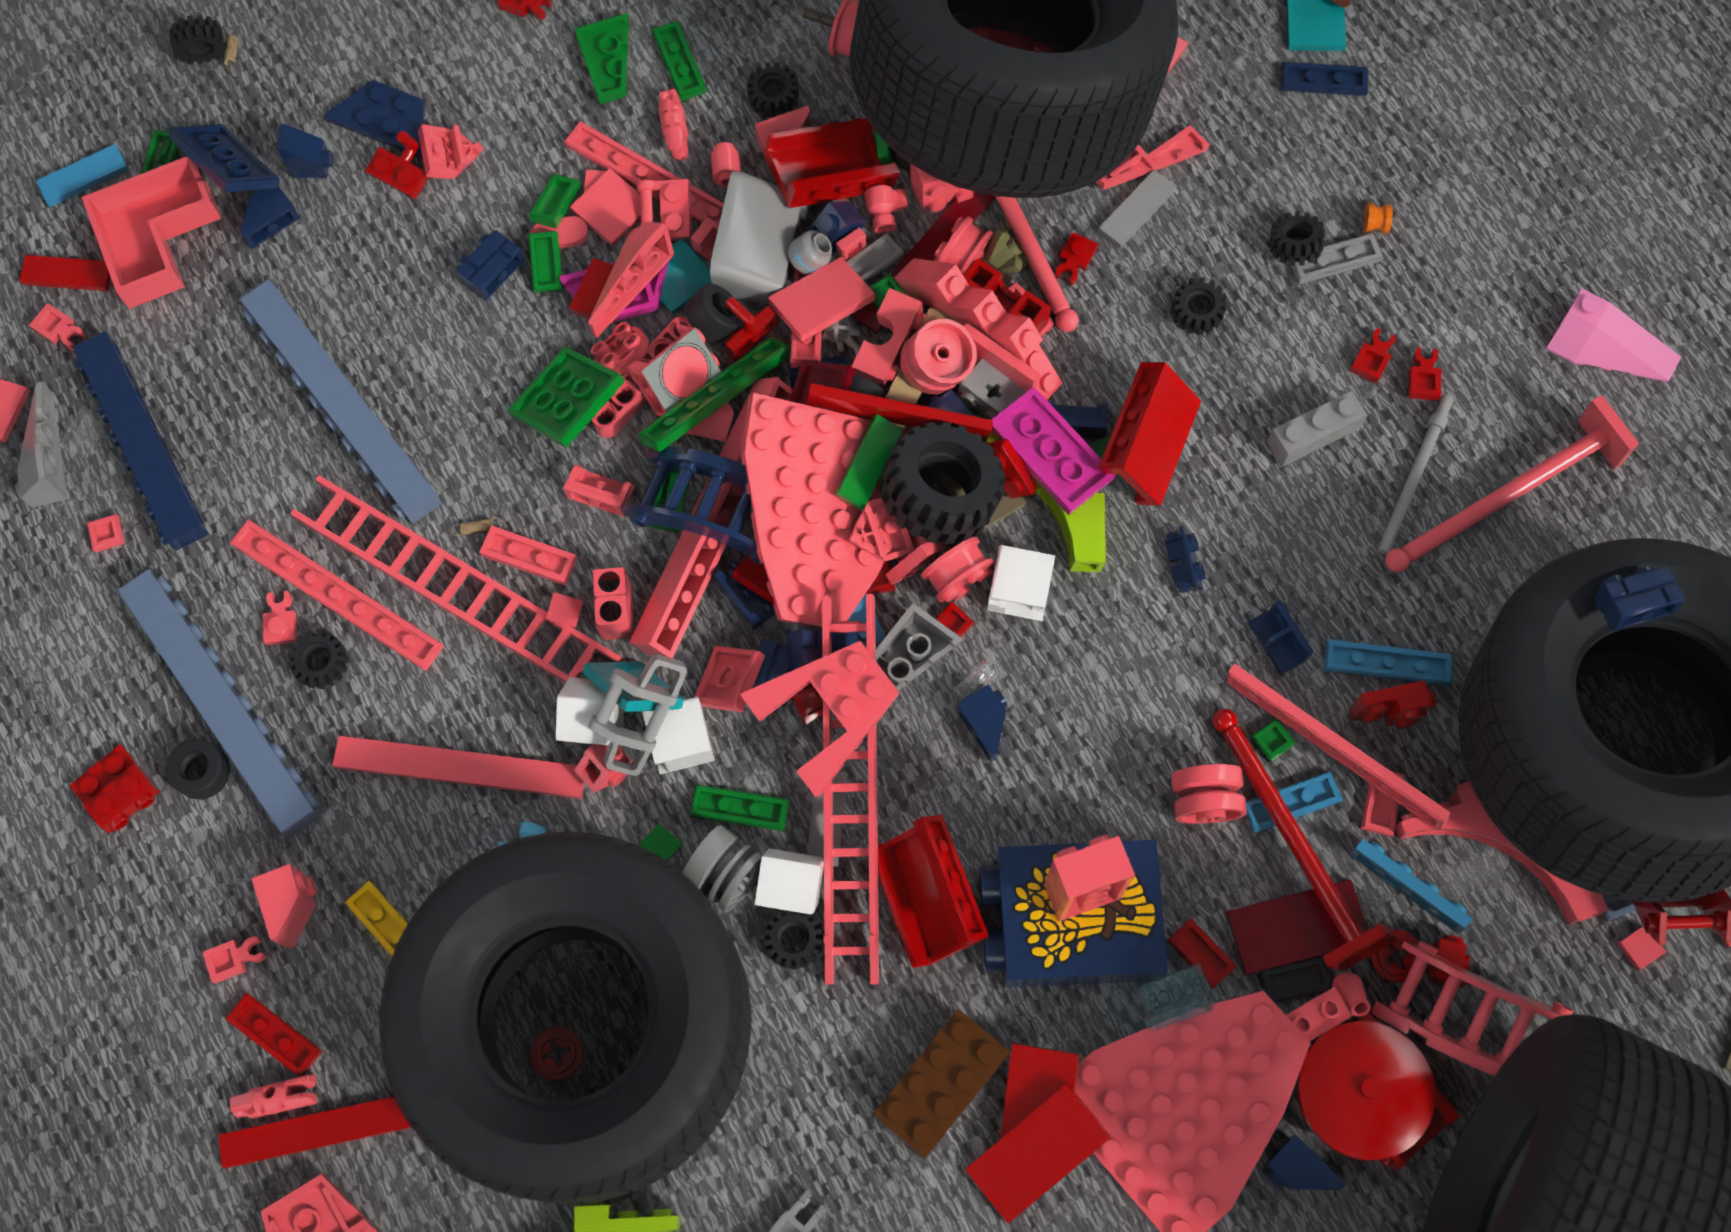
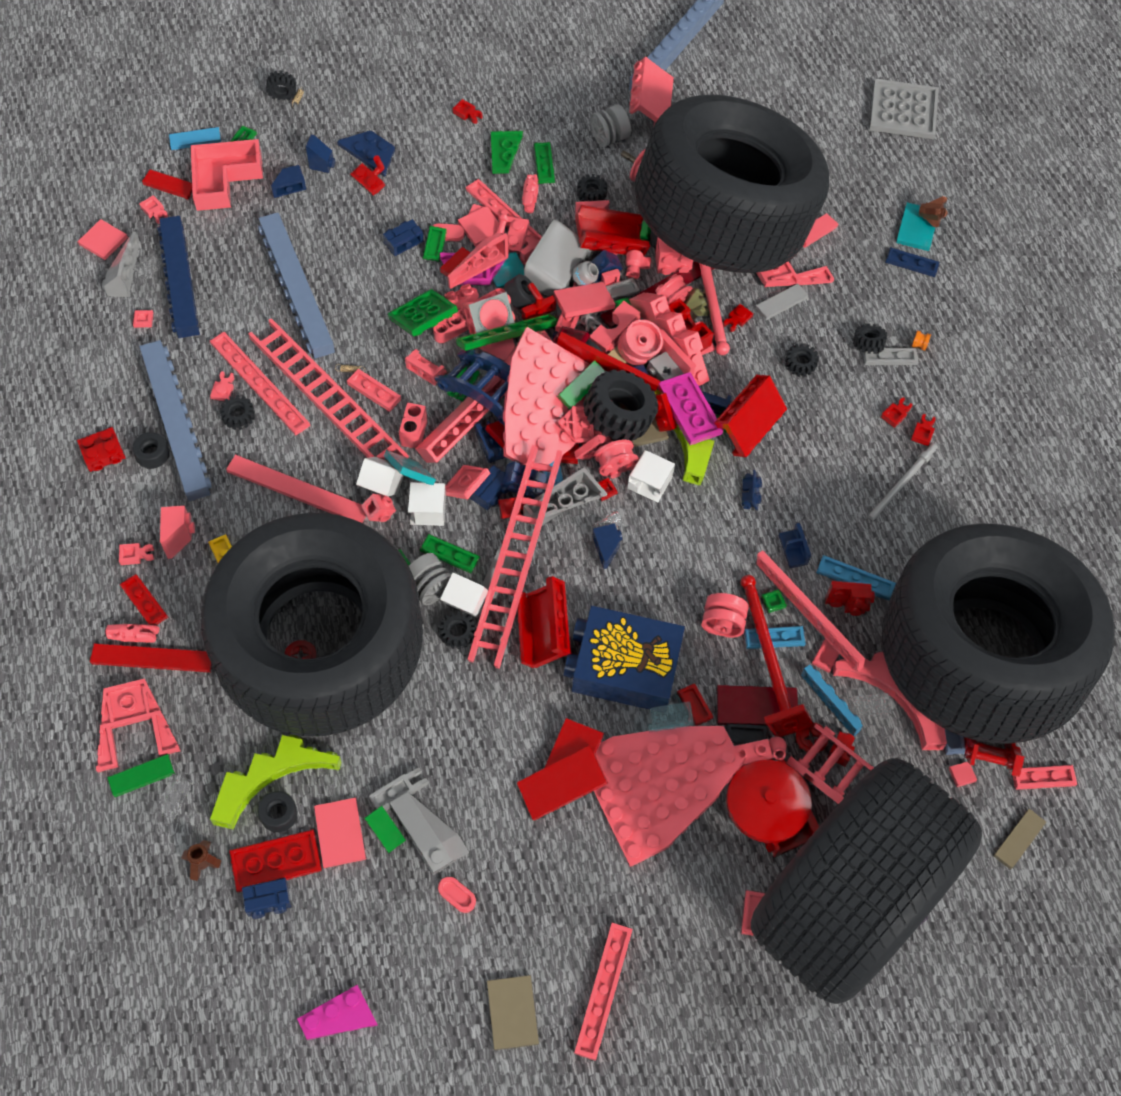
camera: 10 degrees right, 10 degrees down
(223, 158) = (275, 145): dark blue tile -> none
(446, 151) = (398, 175): coral slope -> none
(554, 201) = (450, 214): green tile -> none
(564, 609) = (384, 422): coral tile -> none
(640, 688) = (411, 461): light grey bar -> none
(724, 161) = (552, 214): coral brick -> none
(852, 689) = (534, 499): coral wing -> none
(941, 1084) = (517, 730): reddish brown brick -> none
(1088, 877) = (635, 624): coral brick -> none
(1300, 1168) = (717, 838): dark blue slope -> none
(1317, 428) = (851, 440): light grey brick -> none
(1603, 431) = (1021, 485): coral piece -> none
(1605, 337) = (1038, 436): bright pink wedge -> none
(1638, 597) = (1003, 551): dark blue brick -> none

